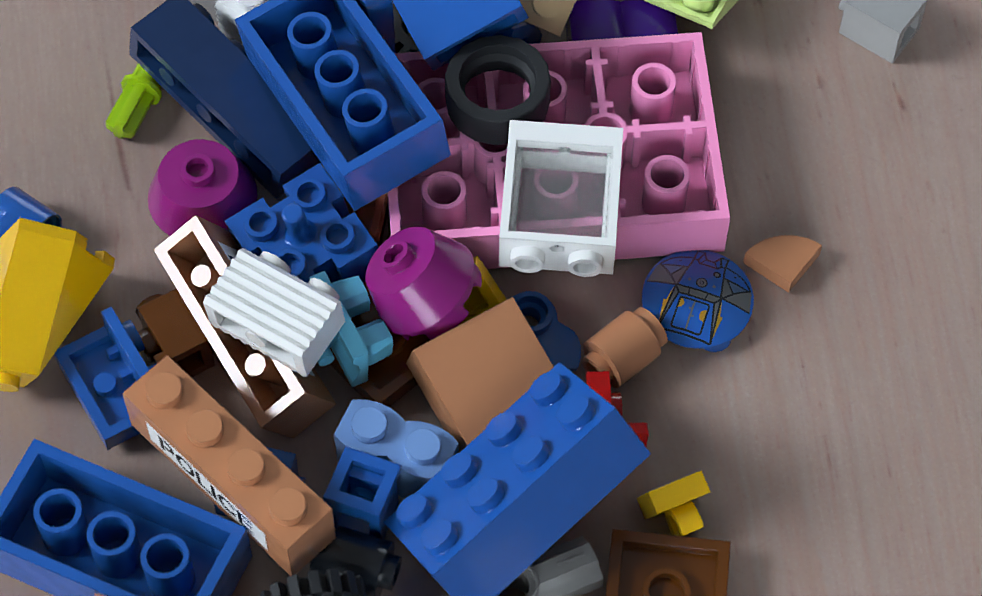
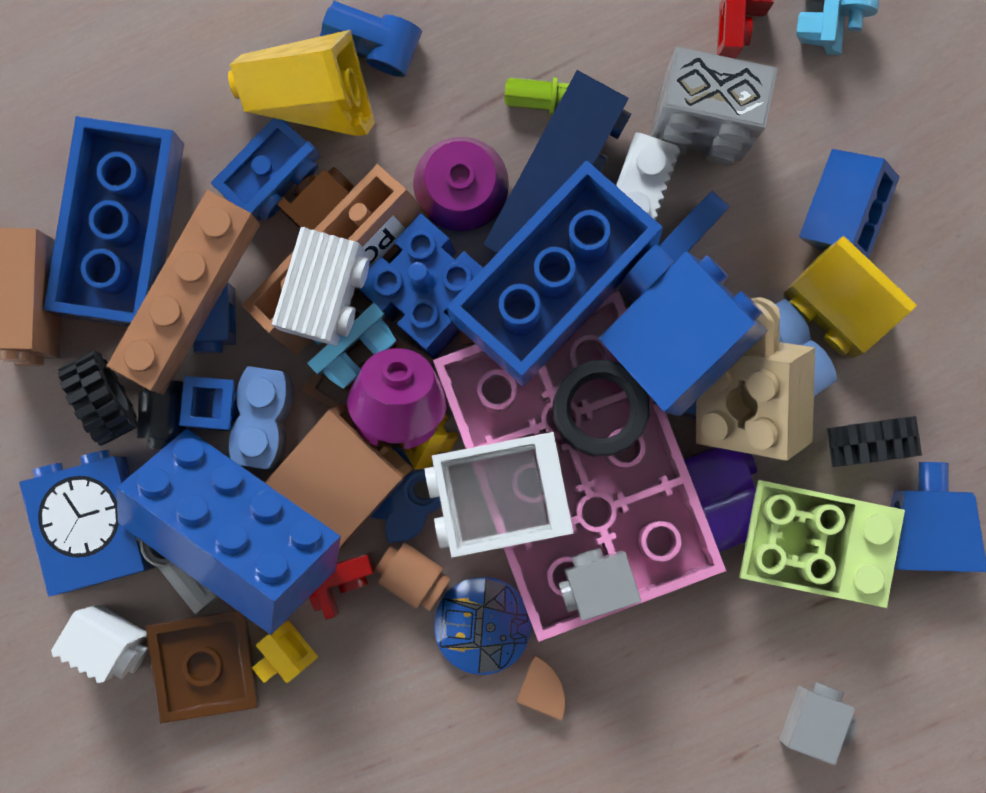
camera: 75 degrees right, 25 degrees up
(683, 131) = (599, 584): none -> light grey brick

